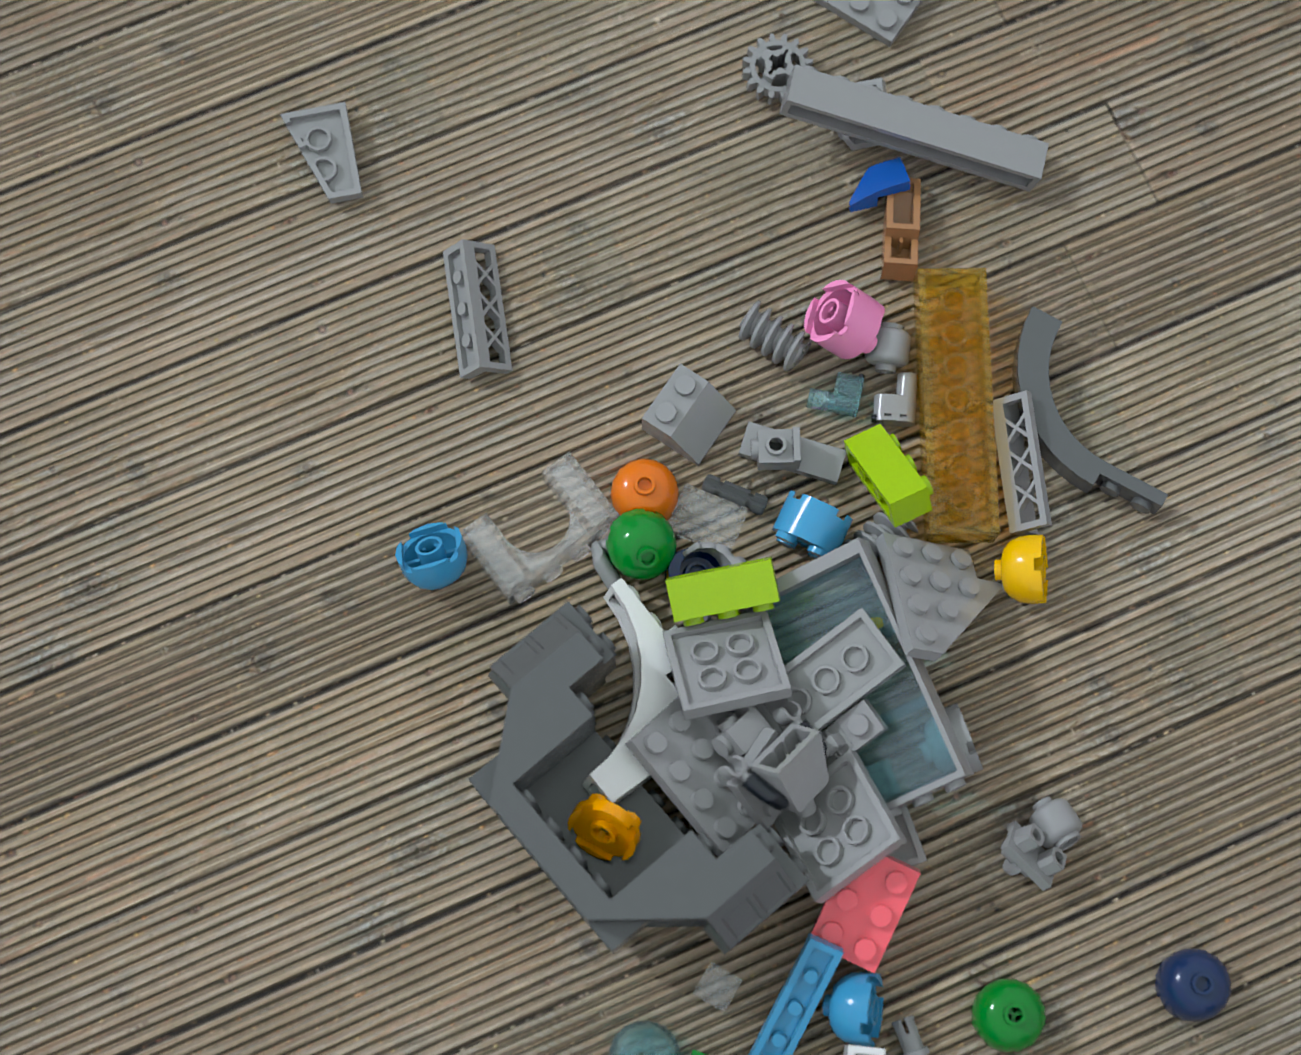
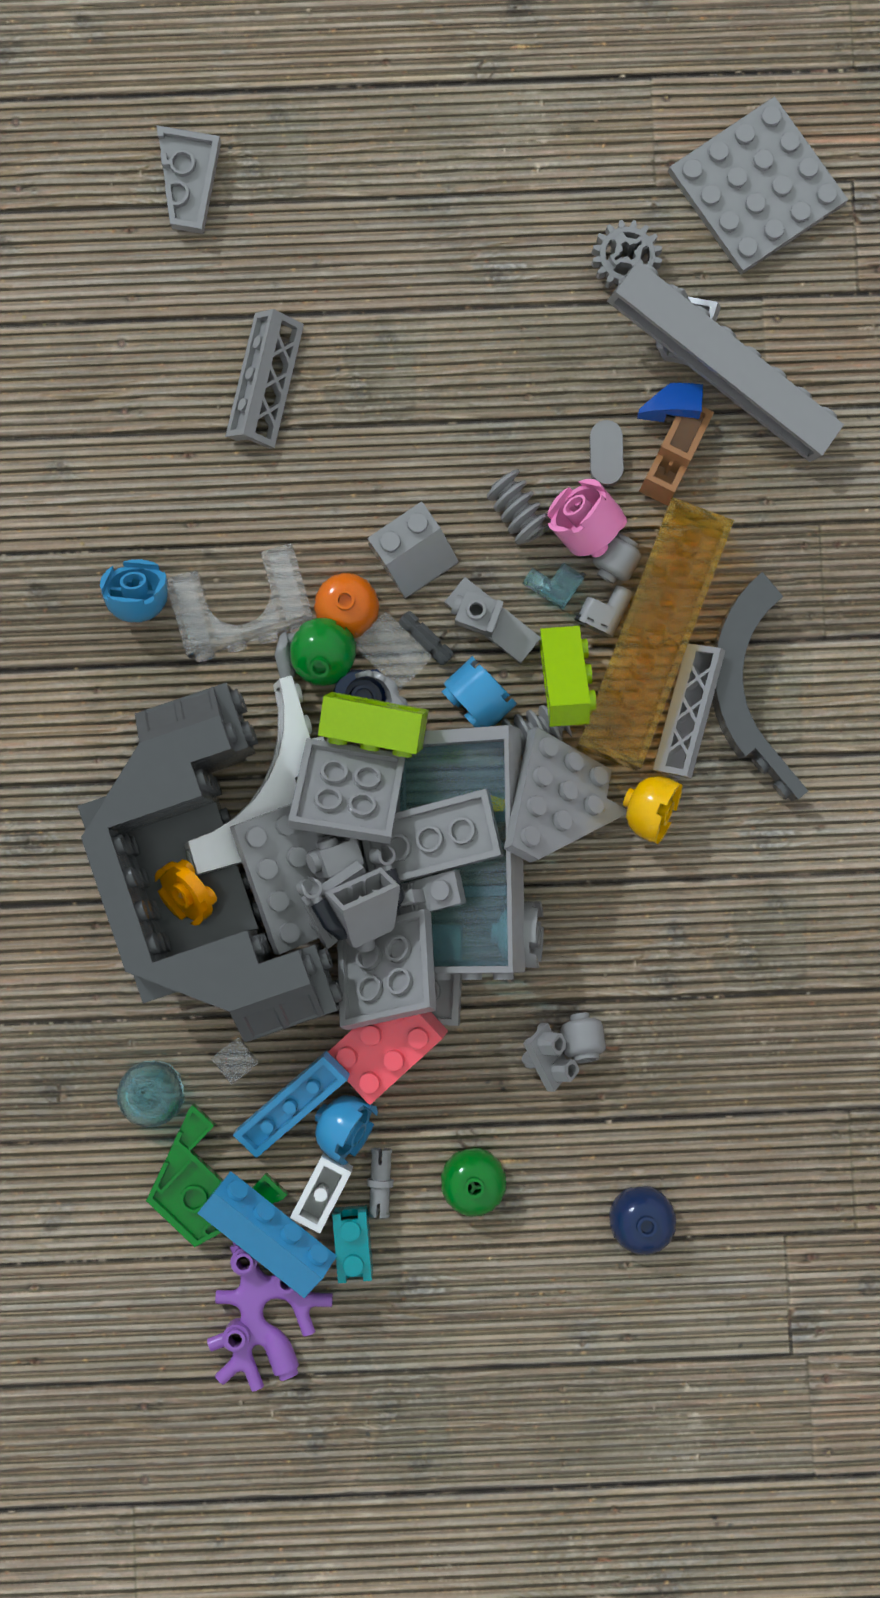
camera: 20 degrees right, 10 degrees up
(834, 253) = (606, 453): none -> light grey tile

